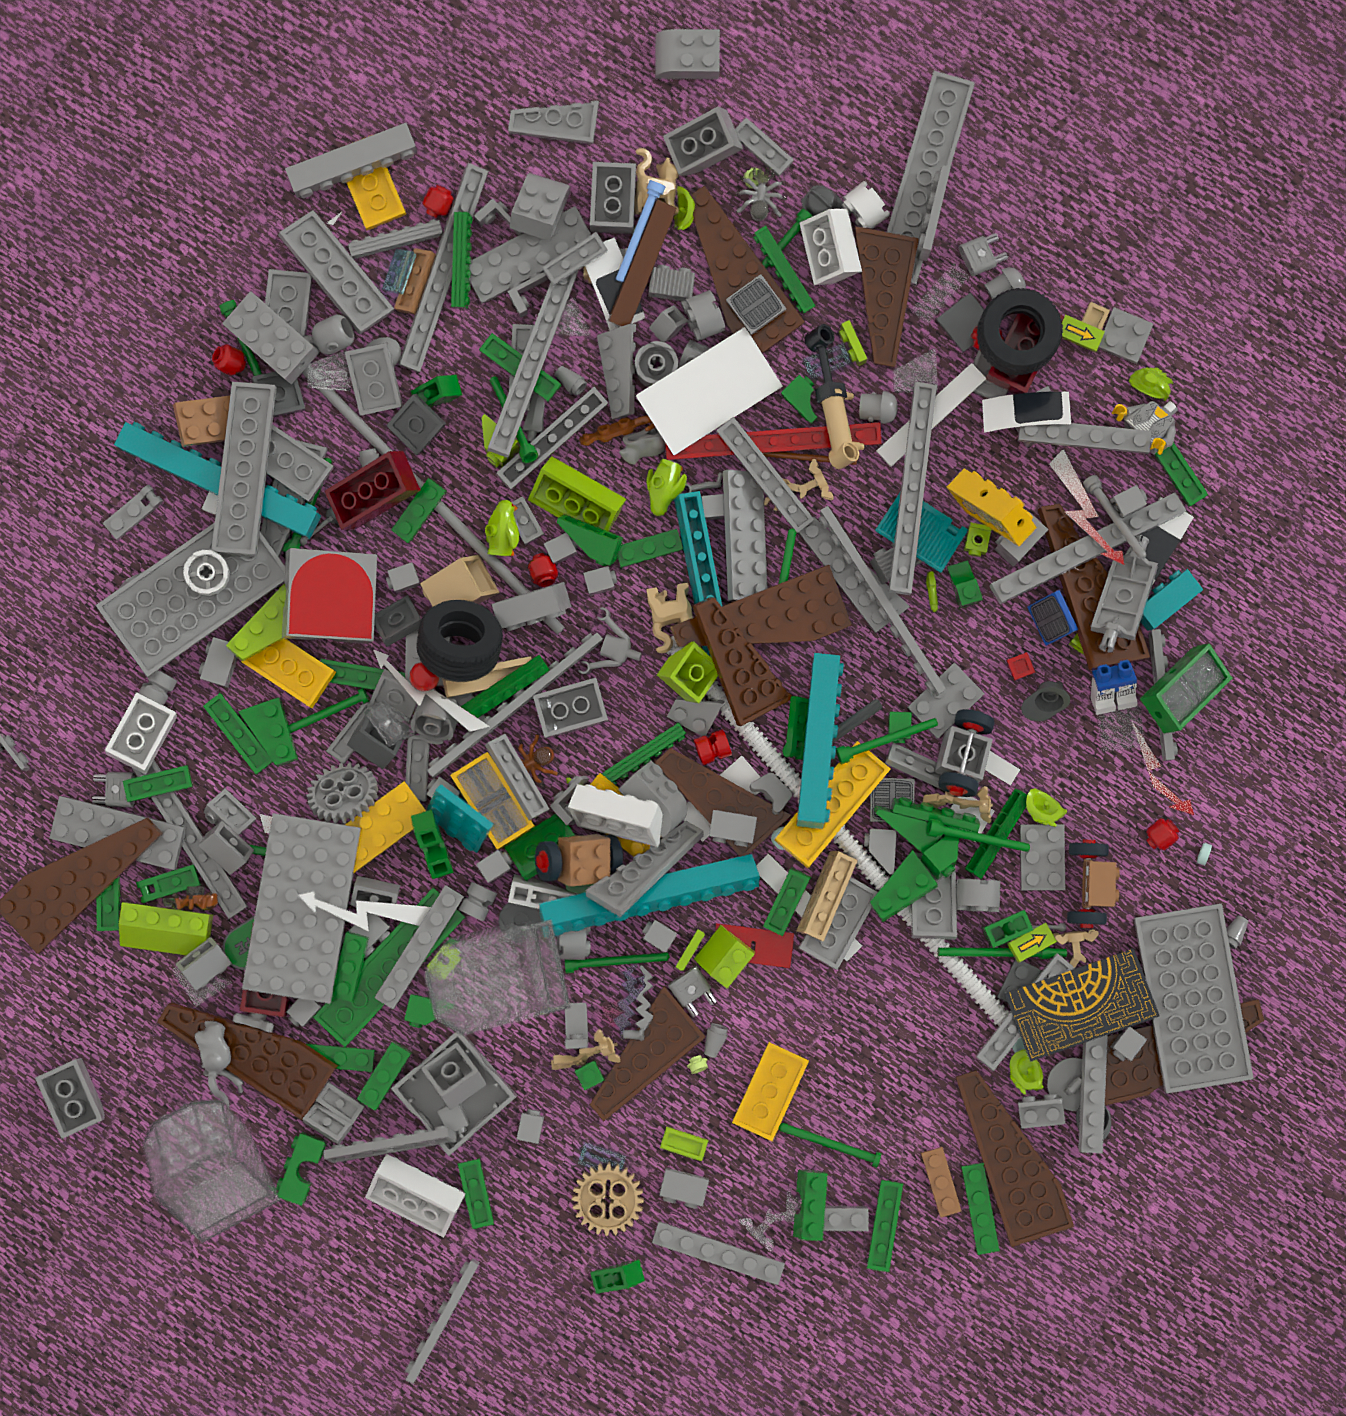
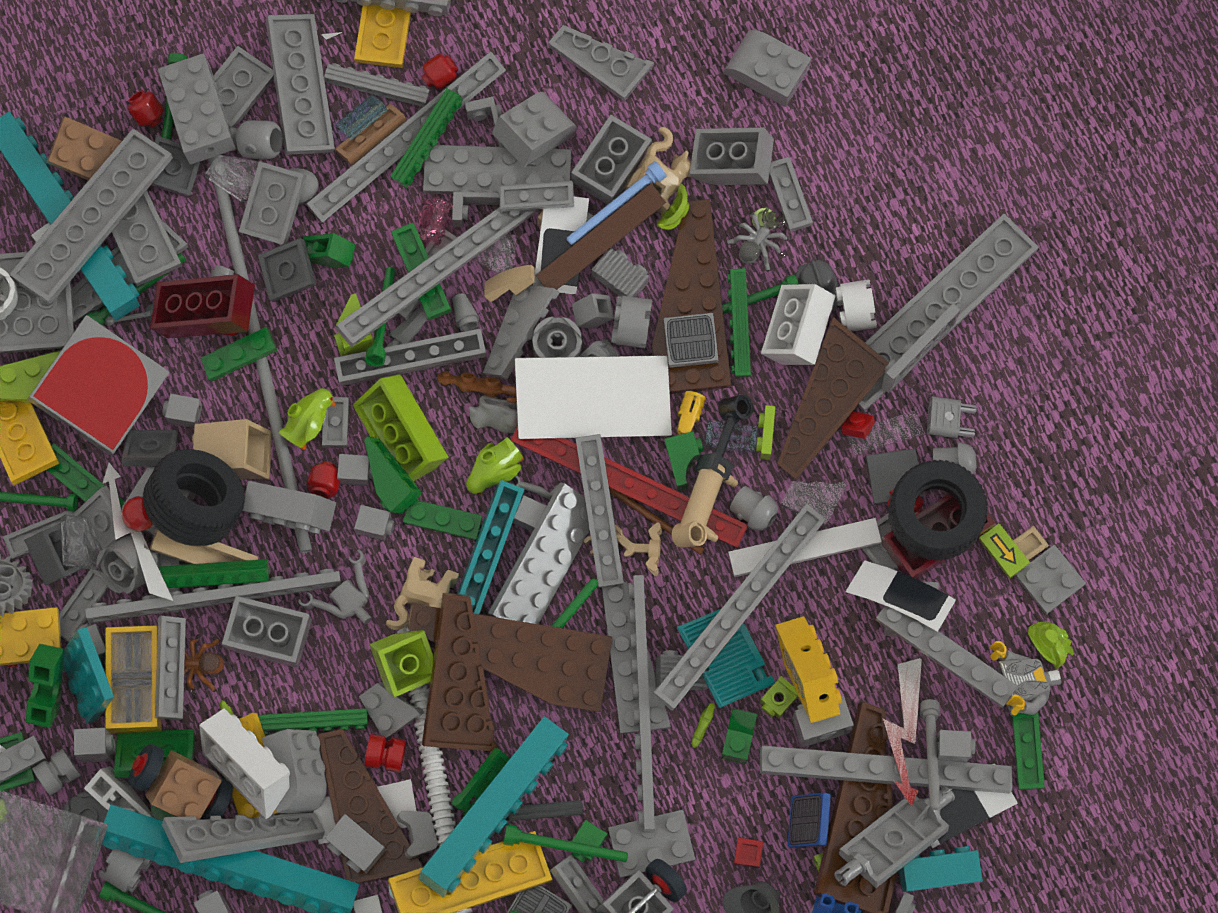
camera: 30 degrees right, 10 degrees down
(504, 321) = (433, 219): none -> clear pink animal
(560, 806) = (202, 715): light grey bracket -> none
(593, 334) = (514, 279): none -> tan slope
(786, 361) = (688, 418): none -> yellow hinge
(918, 298) = (858, 425): none -> red plate

